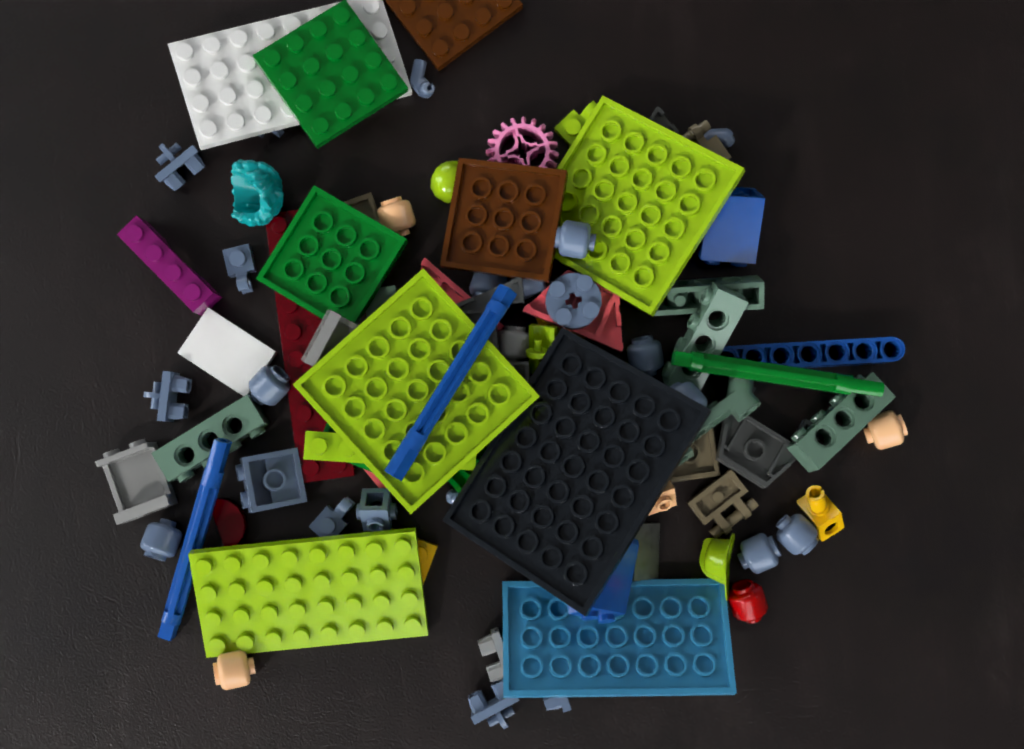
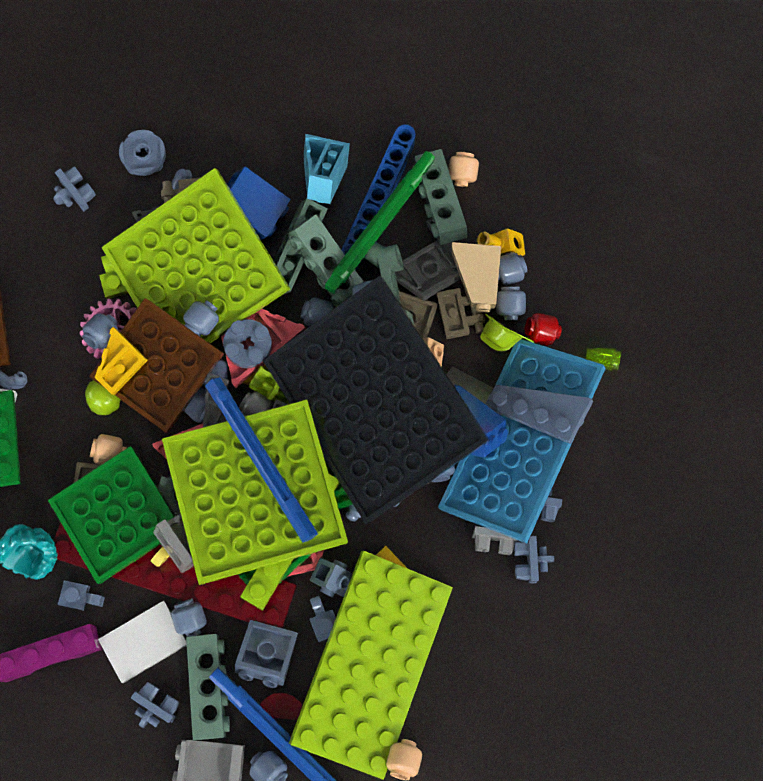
camera: 65 degrees left, 10 degrees down
(309, 326) = (160, 557): none -> light yellow tile
(485, 180) = (119, 362): none -> yellow wing
(510, 143) = (97, 330): none -> sand blue head
(649, 44) = (68, 180): none -> sand blue hips
(654, 651) = (545, 411): none -> sand blue wing
(732, 67) = (145, 165): none -> sand blue plate
(749, 682) = (607, 356): none -> clear neon green cone
(771, 510) = (478, 272): none -> tan slope
(809, 281) = (324, 166): none -> medium azure wedge

